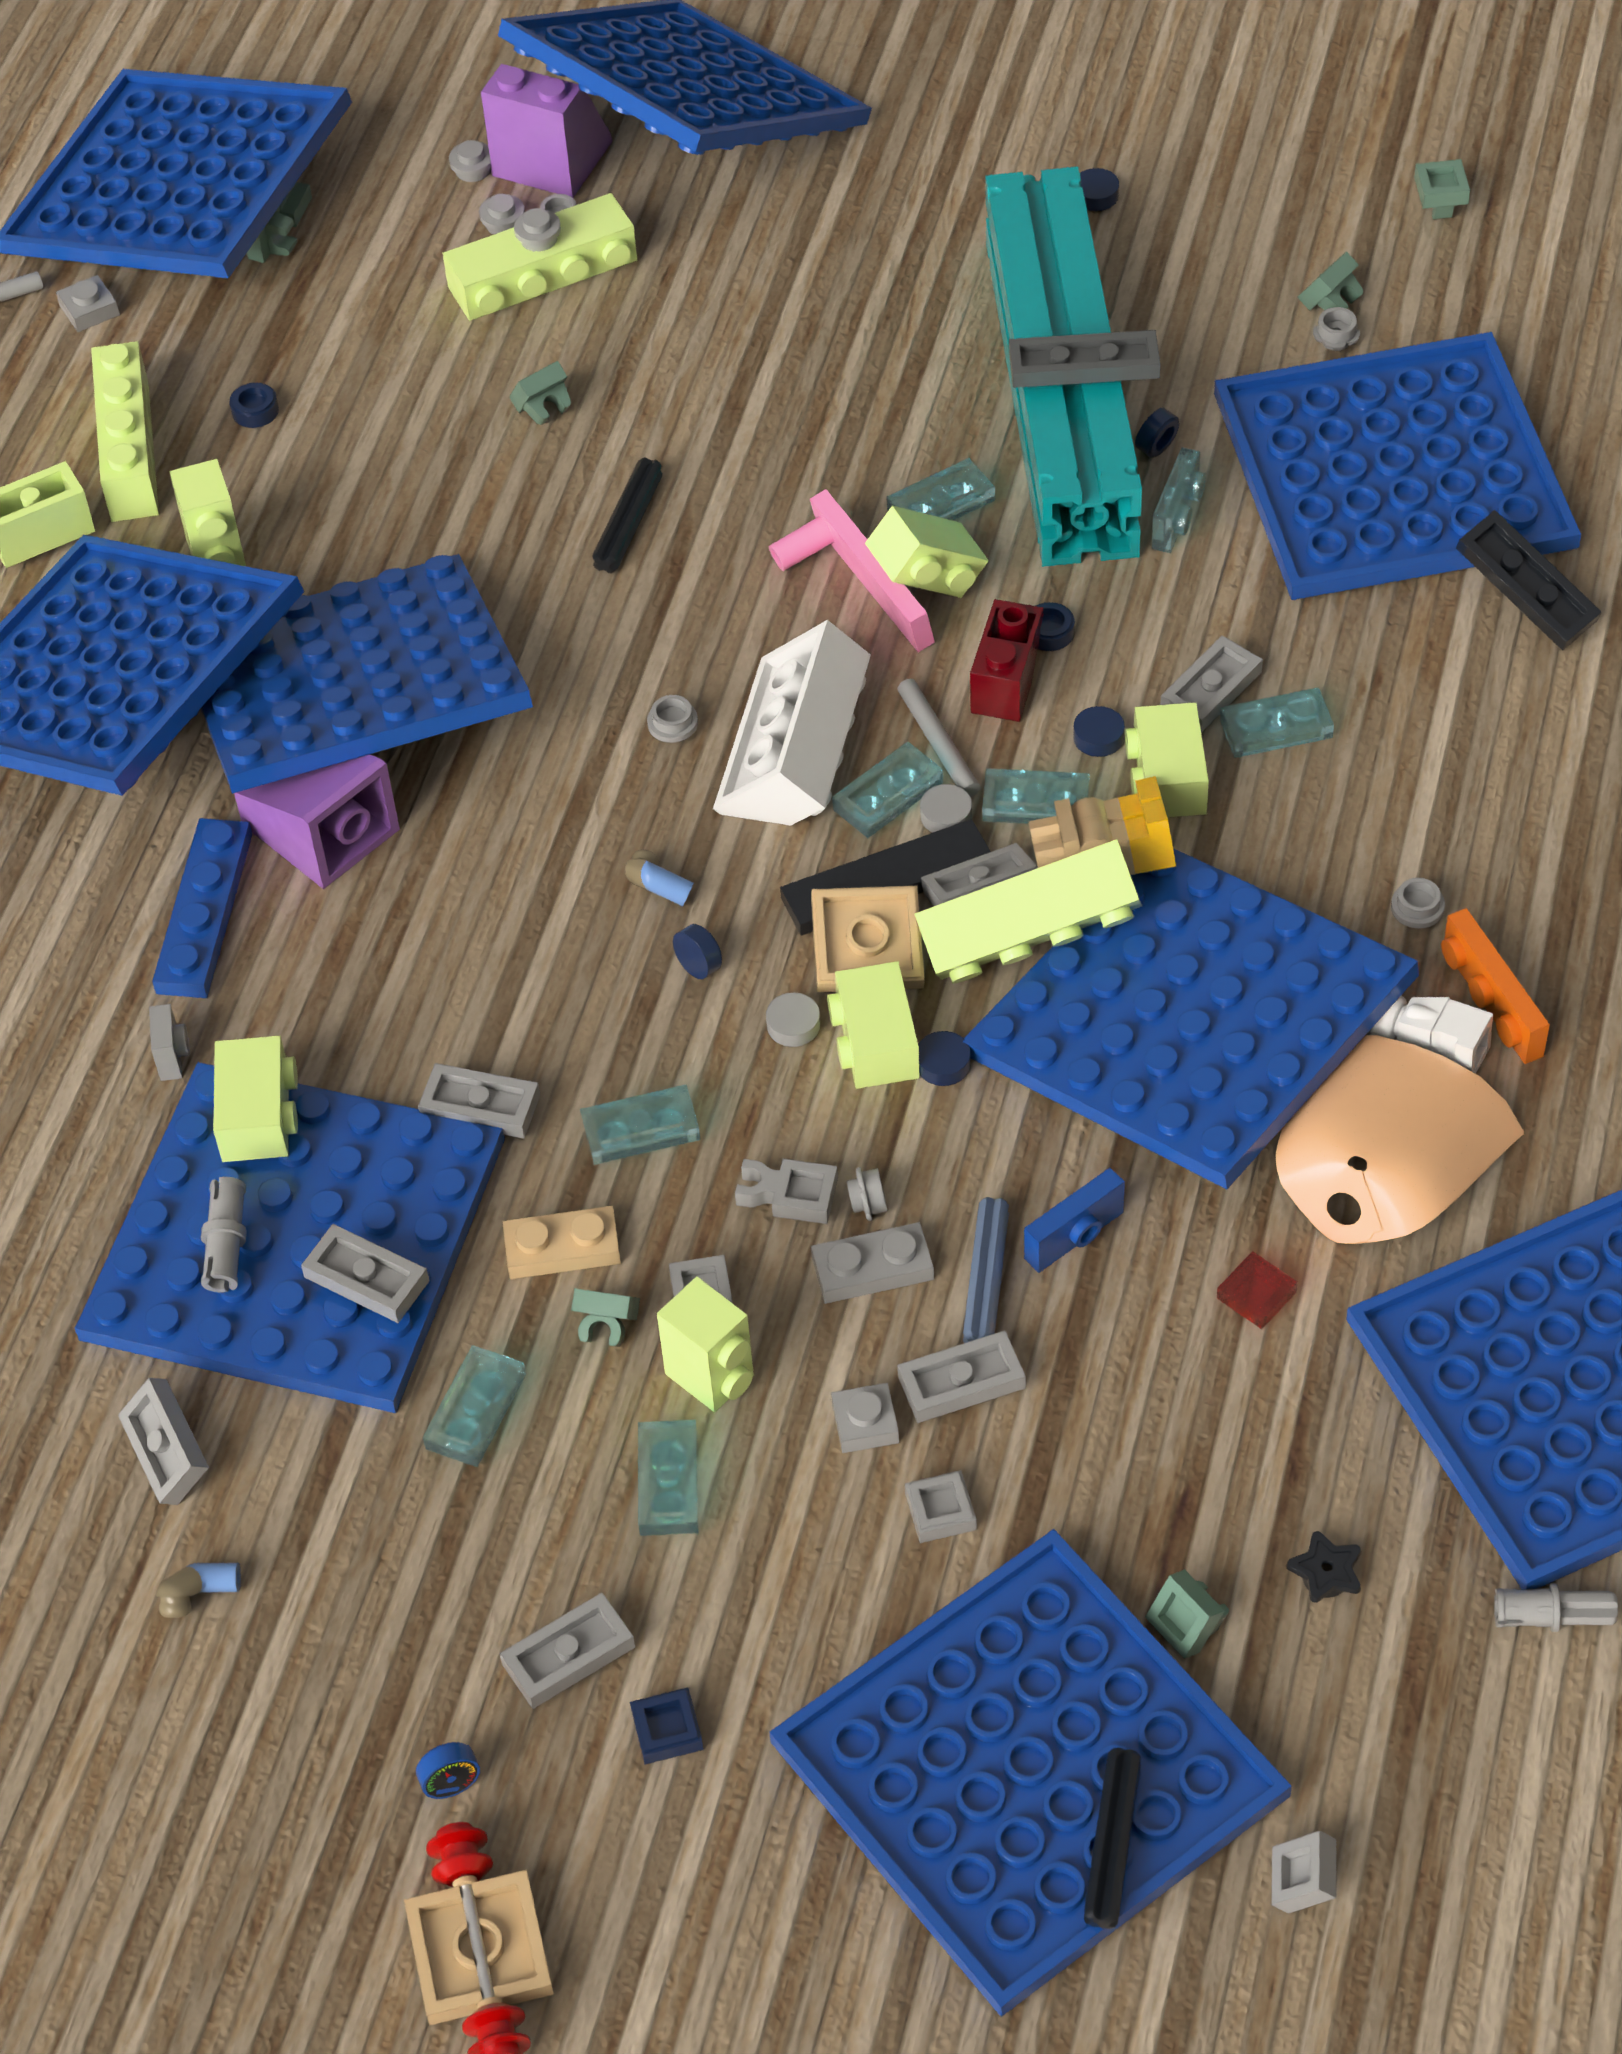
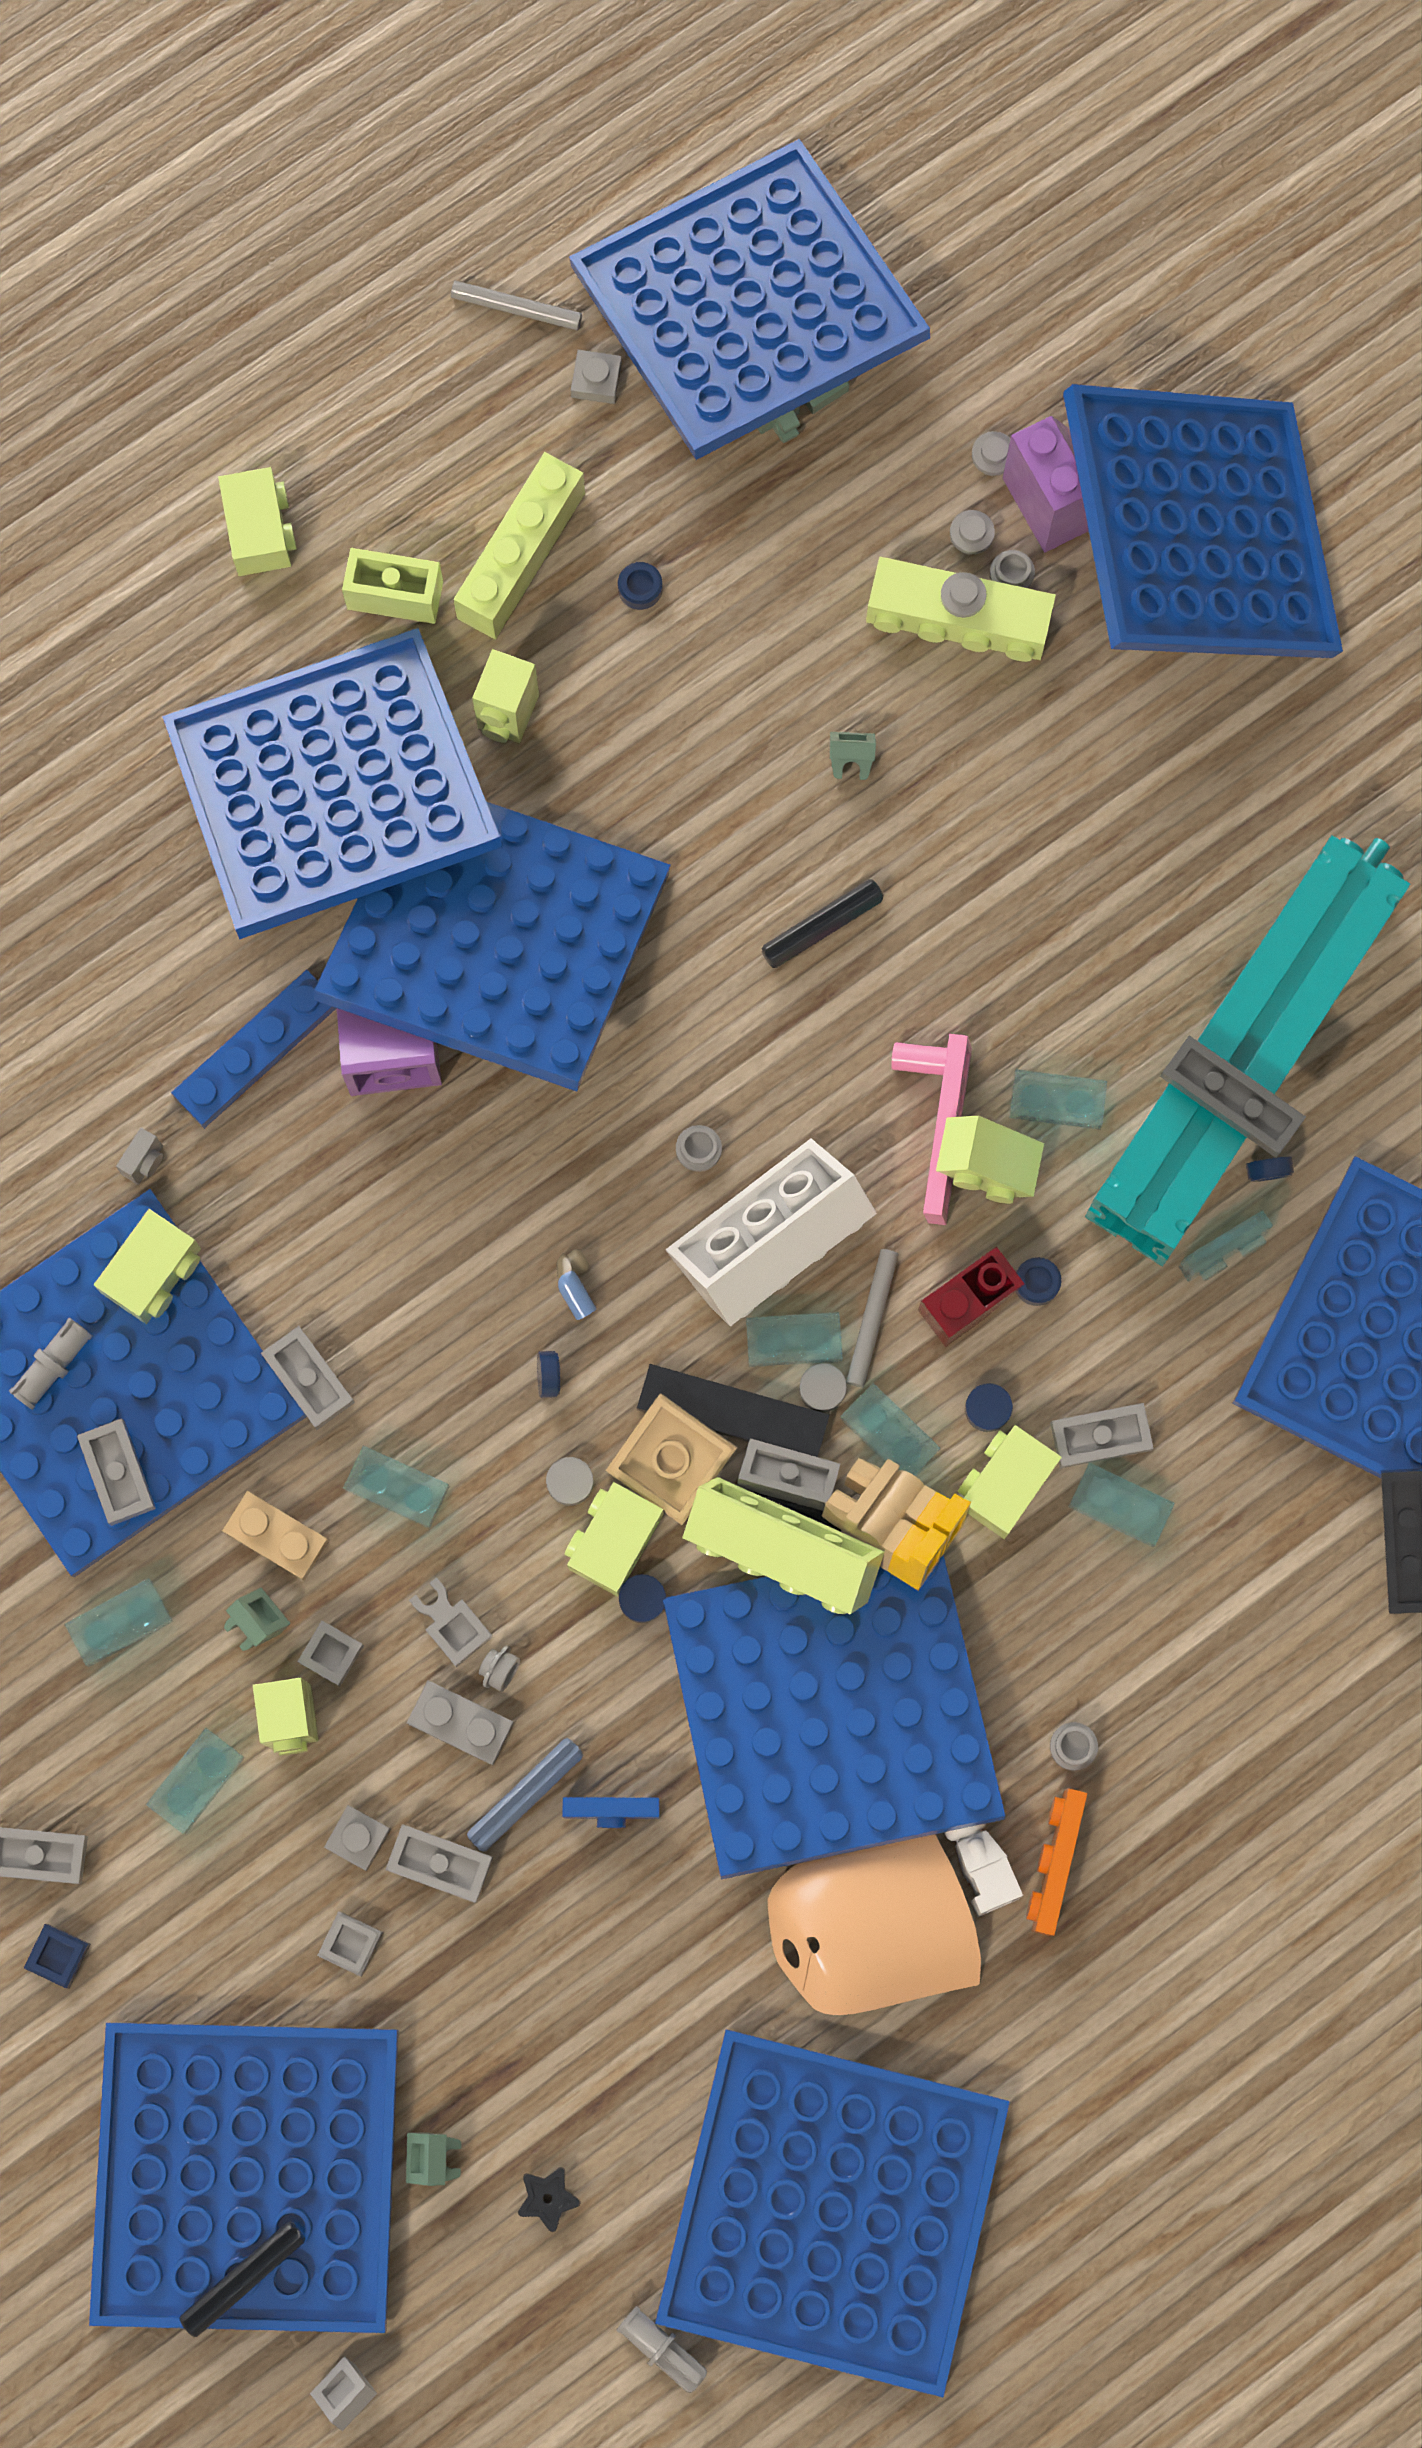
camera: 35 degrees right, 25 degrees up
(1257, 1290) = (688, 1957): clear red tile -> none

